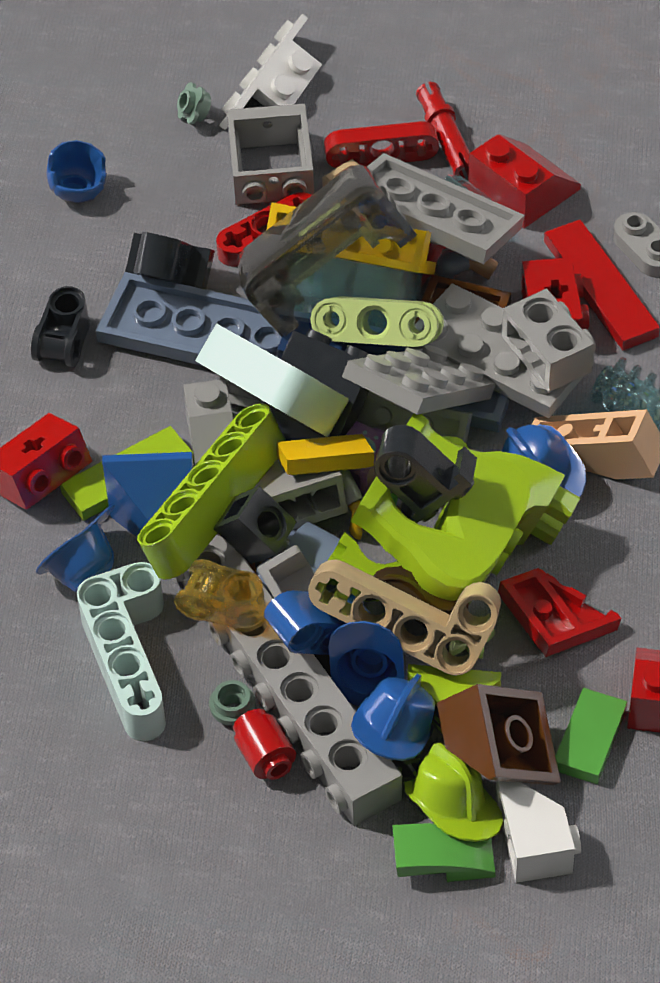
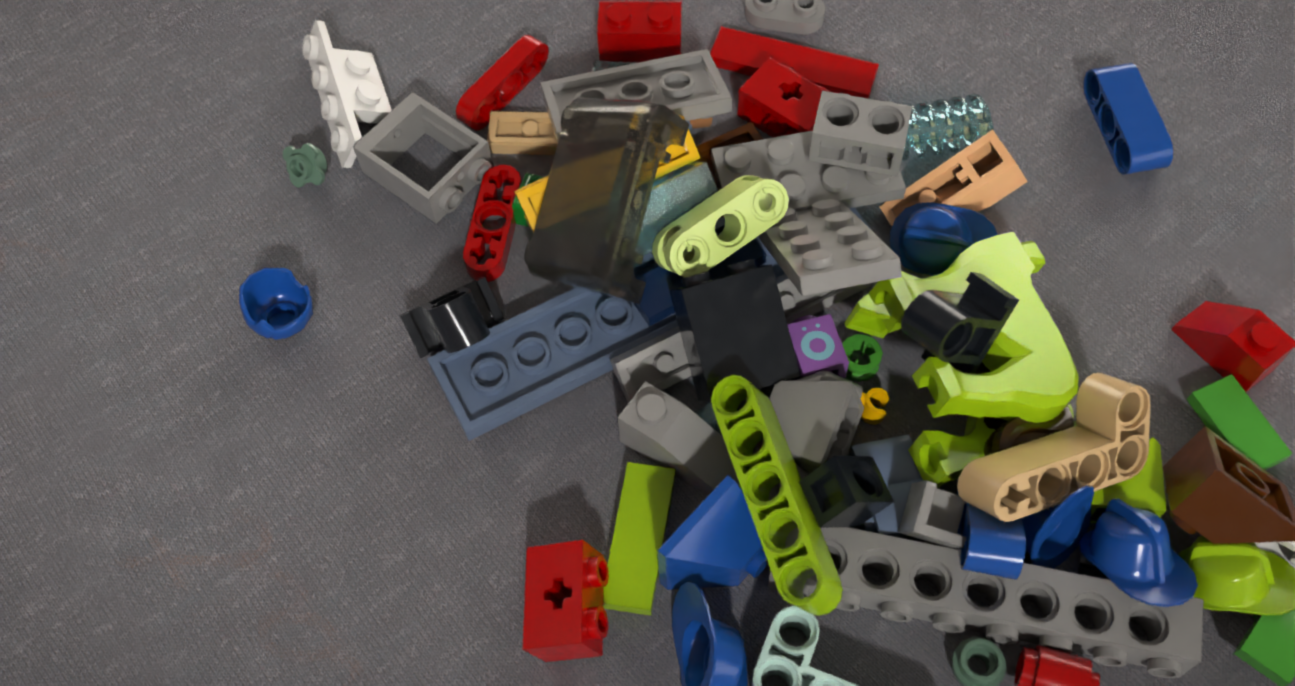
camera: 45 degrees left, 10 degrees up
(62, 327) = (436, 462): black piece -> none
(223, 596) = (888, 586): clear yellow piece -> none
(272, 380) = (698, 351): light aqua beam -> none
(325, 454) = (816, 376): yellow tile -> none
(443, 119) = (520, 24): red pin -> none
(553, 612) = (1107, 346): red wing -> none

